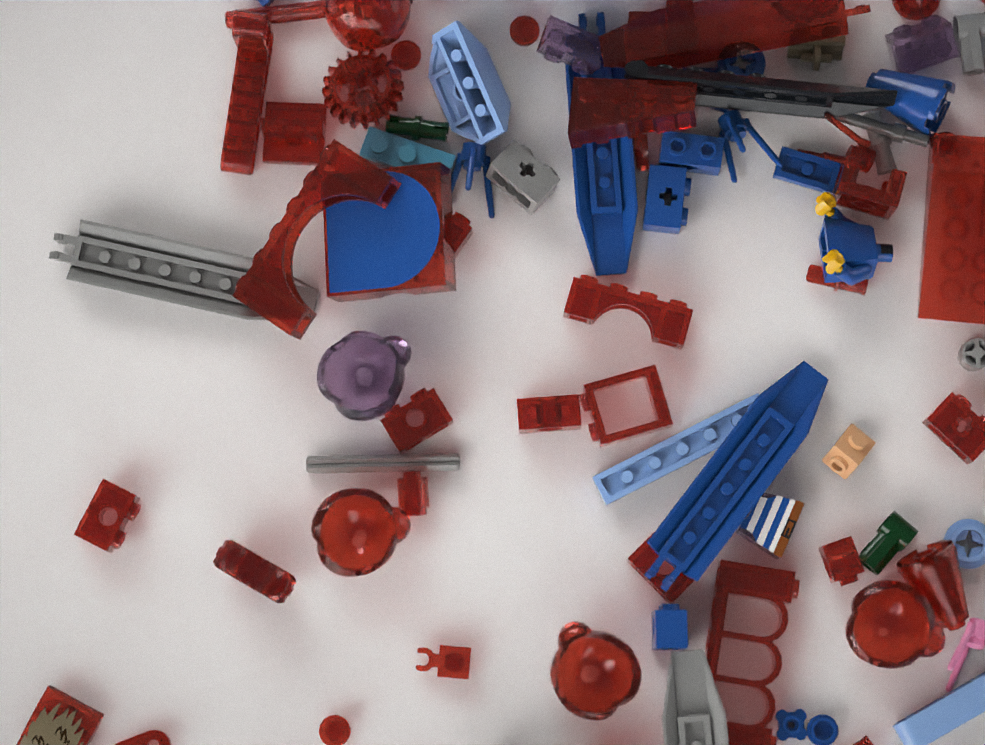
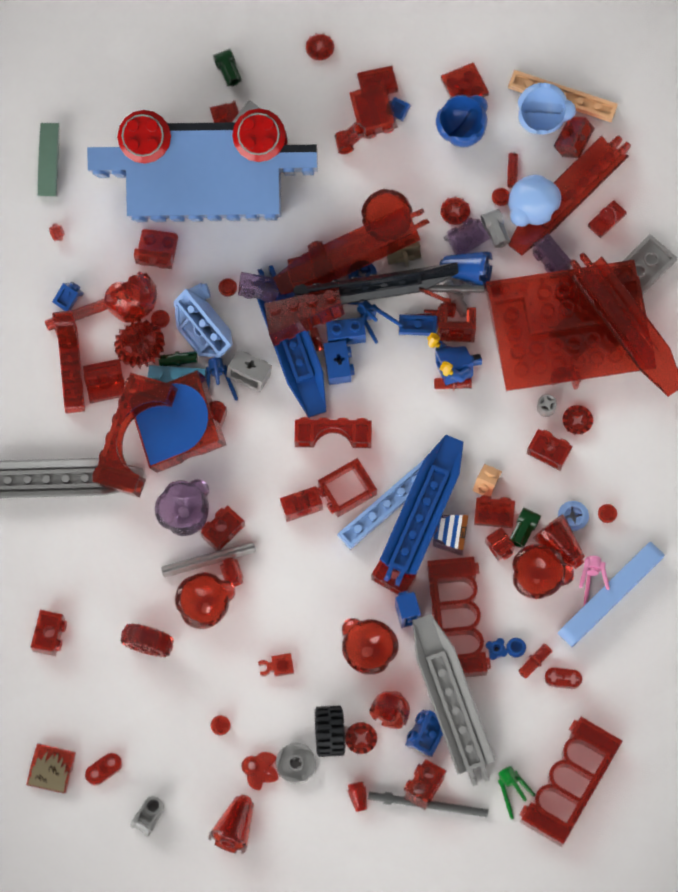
camera: 15 degrees left, 10 degrees down
(480, 26) = (201, 290): none -> light blue cone
(846, 506) = (494, 512): none -> clear red bracket

